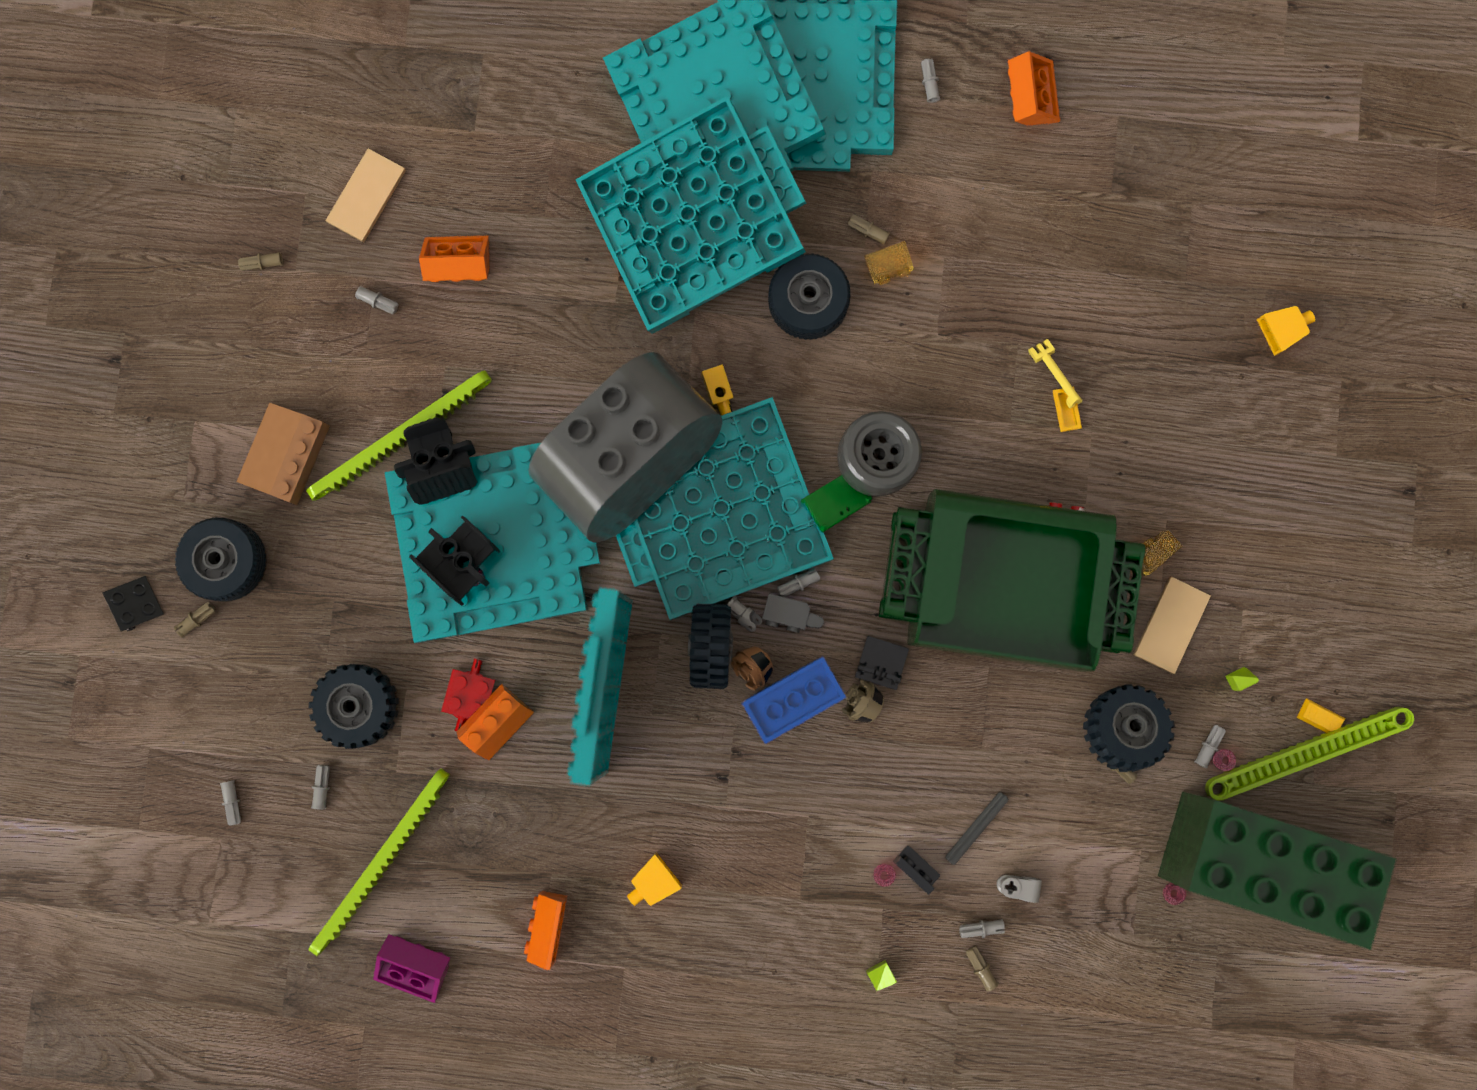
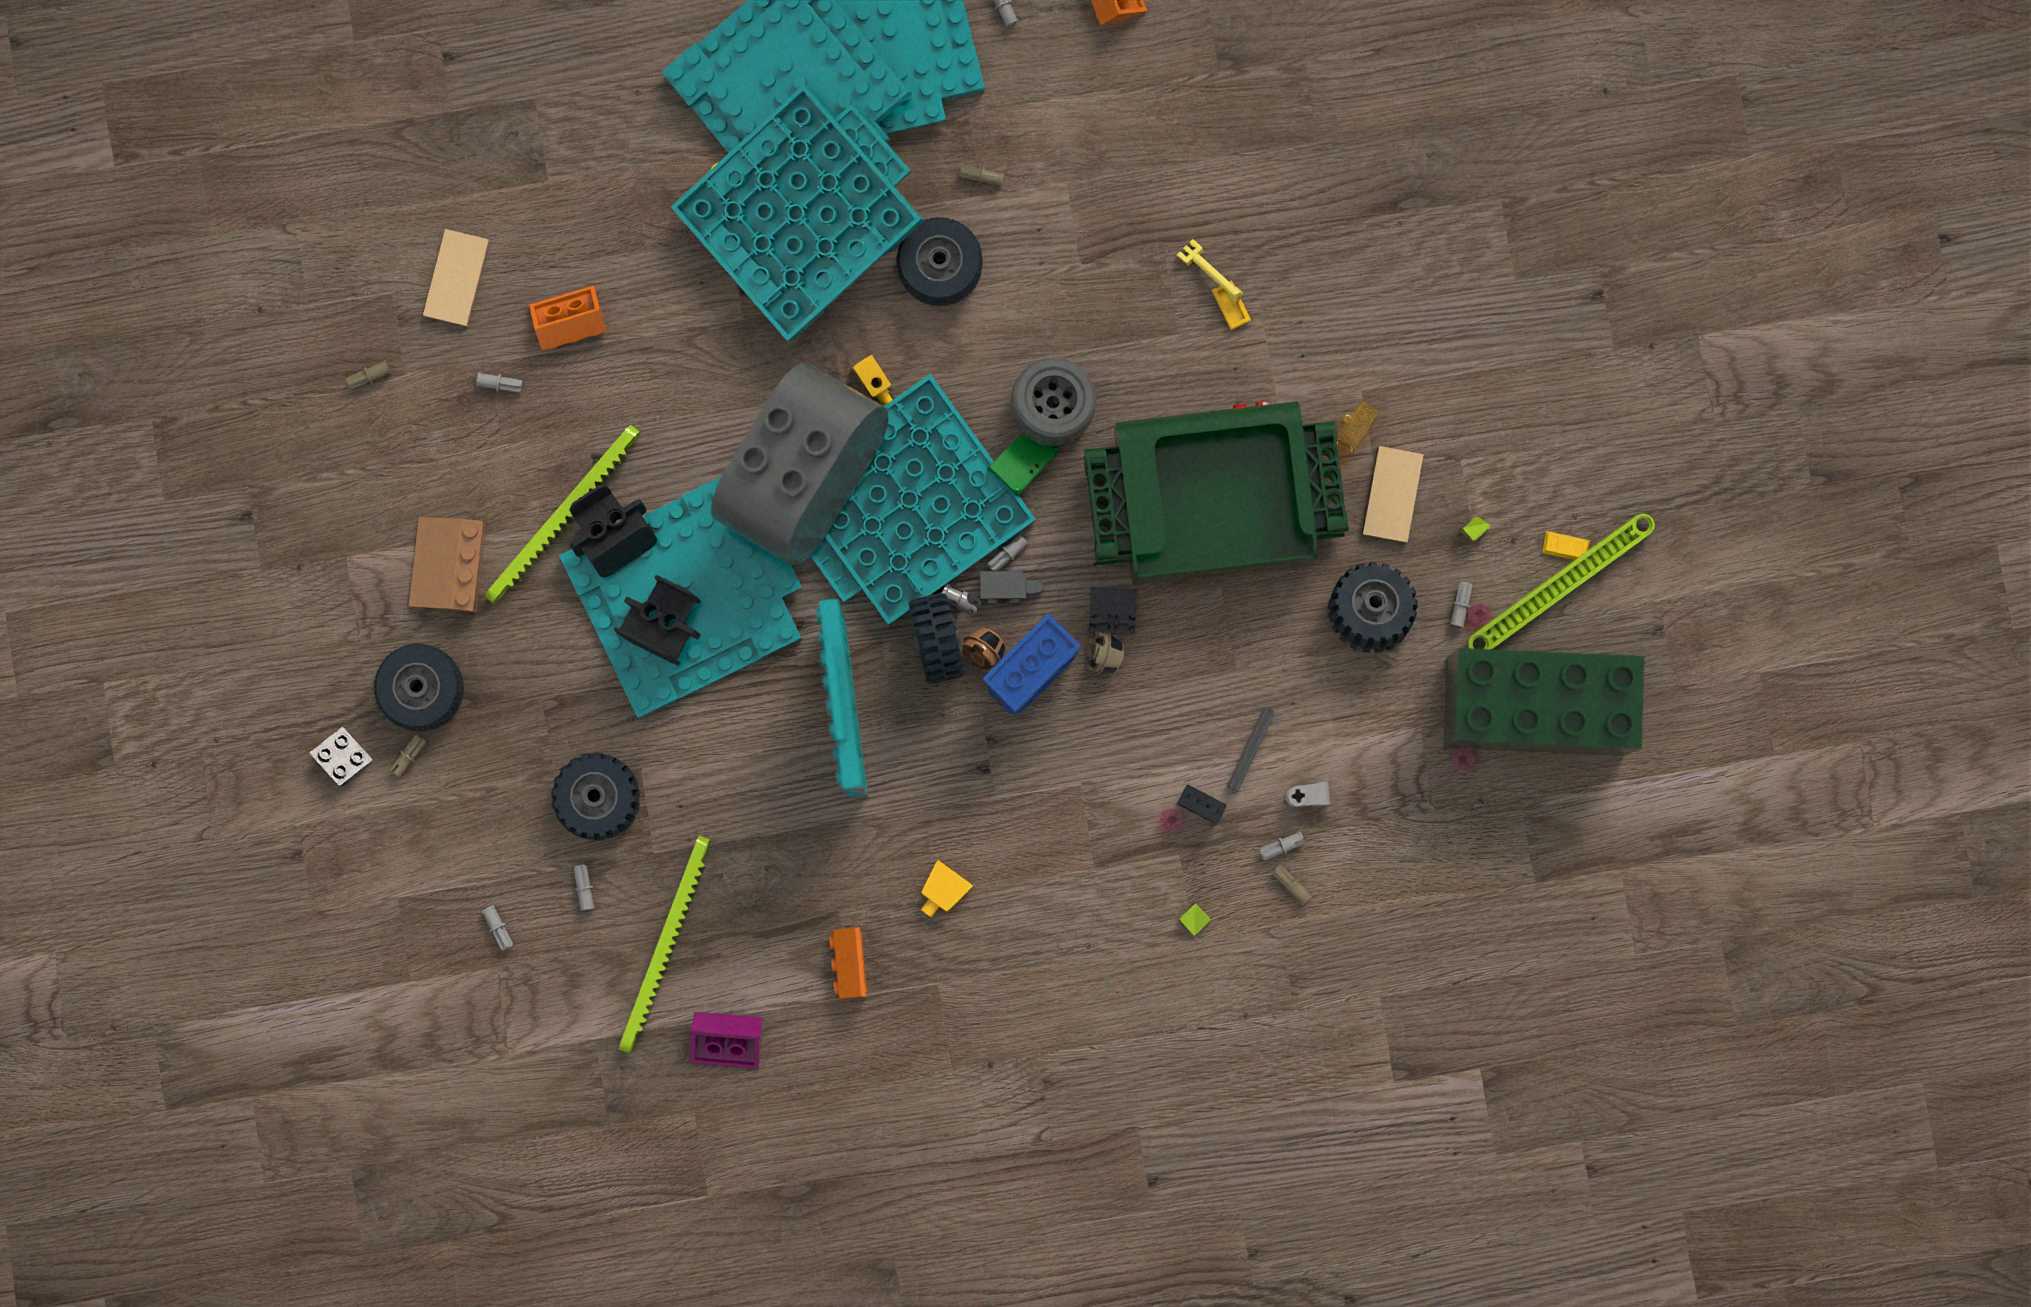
camera: 20 degrees left, 0 degrees up
(466, 693) = (706, 756): red plate -> none
(494, 723) = (741, 774): orange slope -> none
(889, 263) = (1012, 205): clear yellow brick -> none
(1285, 327) = (1429, 163): yellow torso -> none

